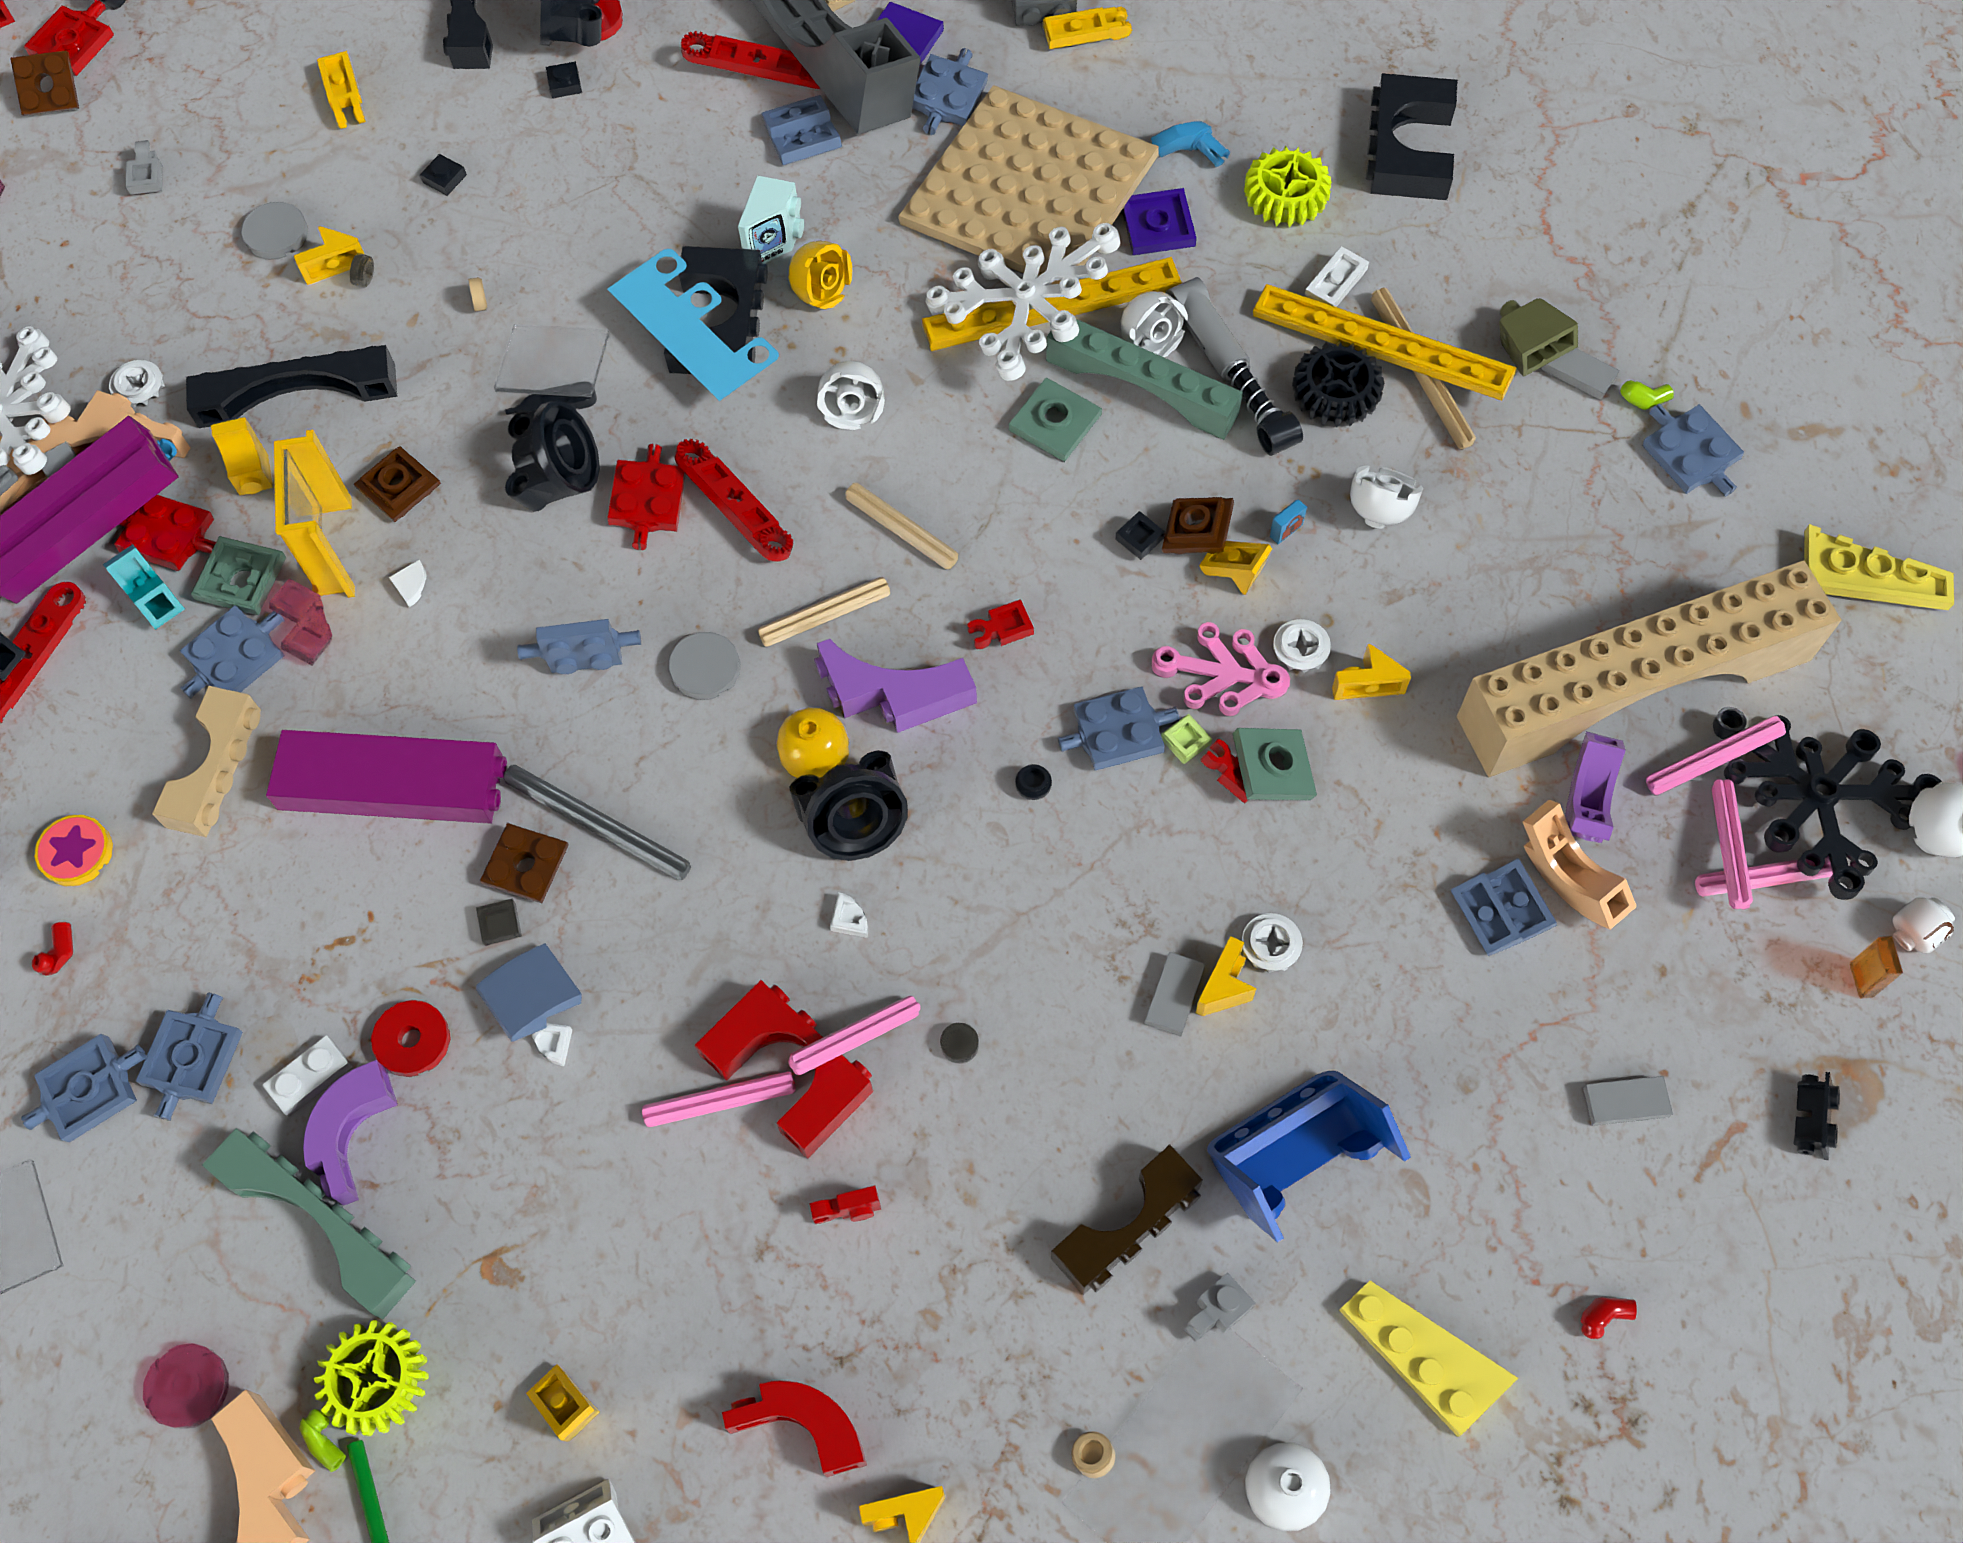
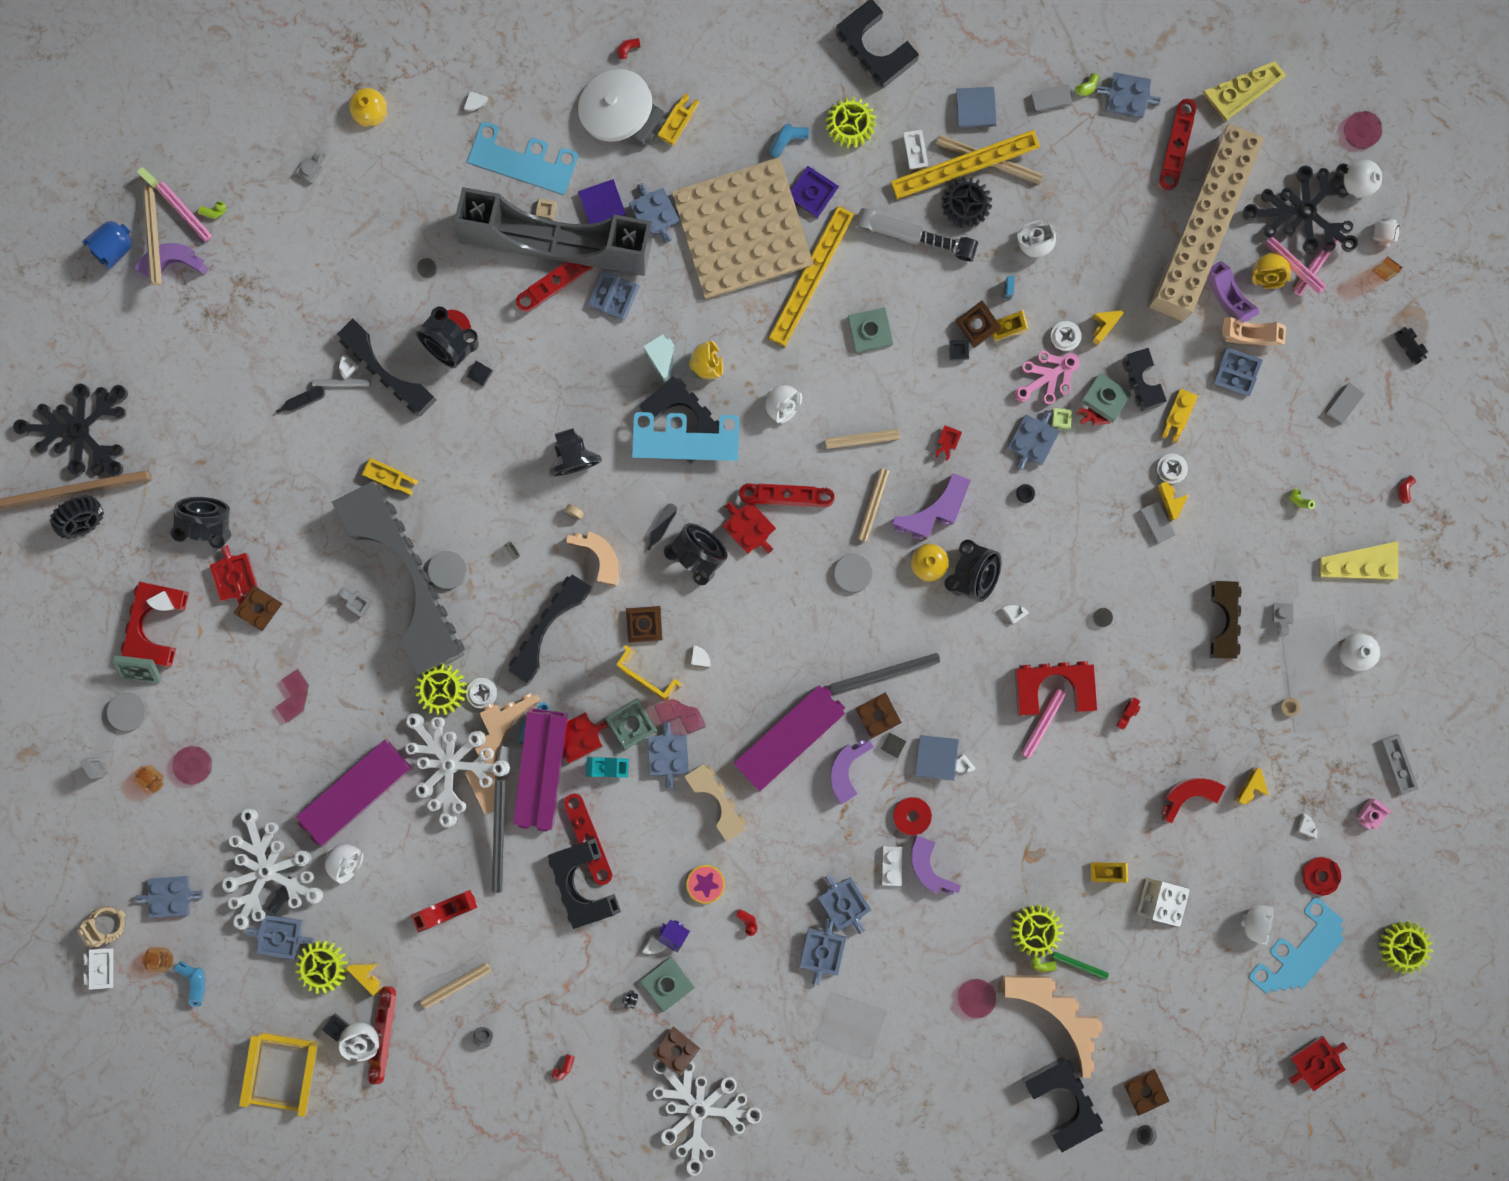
camera: 50 degrees left, 20 degrees up
(94, 327) = (434, 696): none -> neon yellow gear
(162, 262) = (430, 636): none -> dark grey arch
(243, 456) = (577, 679): yellow arch -> none
(330, 258) = (492, 553): yellow slope -> none
(365, 1270) = (916, 914): sand green arch -> none
(395, 879) = (840, 770): none -> medium lavender arch
(443, 174) = (485, 471): black plate -> none
(449, 372) = (608, 559): none -> light nougat arch
(541, 218) = (572, 454): none -> black piece
(579, 646) = (811, 610): sand blue plate -> none
(854, 1035) = (1070, 658): bright pink axle -> none
(1027, 294) = (810, 264): white plant -> none
(1154, 322) = (866, 249): white cylinder -> none
(1198, 398) = (904, 270): sand green arch -> none
(1299, 1136) = (1249, 533): blue windscreen -> none
(1338, 816) = (1146, 395): none -> black arch
(1358, 884) = (1179, 413): none -> yellow hinge
(1416, 1167) = (1295, 497): none -> lime arm
(1466, 298) = (976, 107): none -> sand blue slope
(1536, 334) = (1021, 101): olive torso -> none
(1684, 567) = (1180, 131): none -> red piece
(1684, 818) = (1271, 271): none -> yellow cylinder
(1715, 755) = (1258, 232): bright pink axle -> none

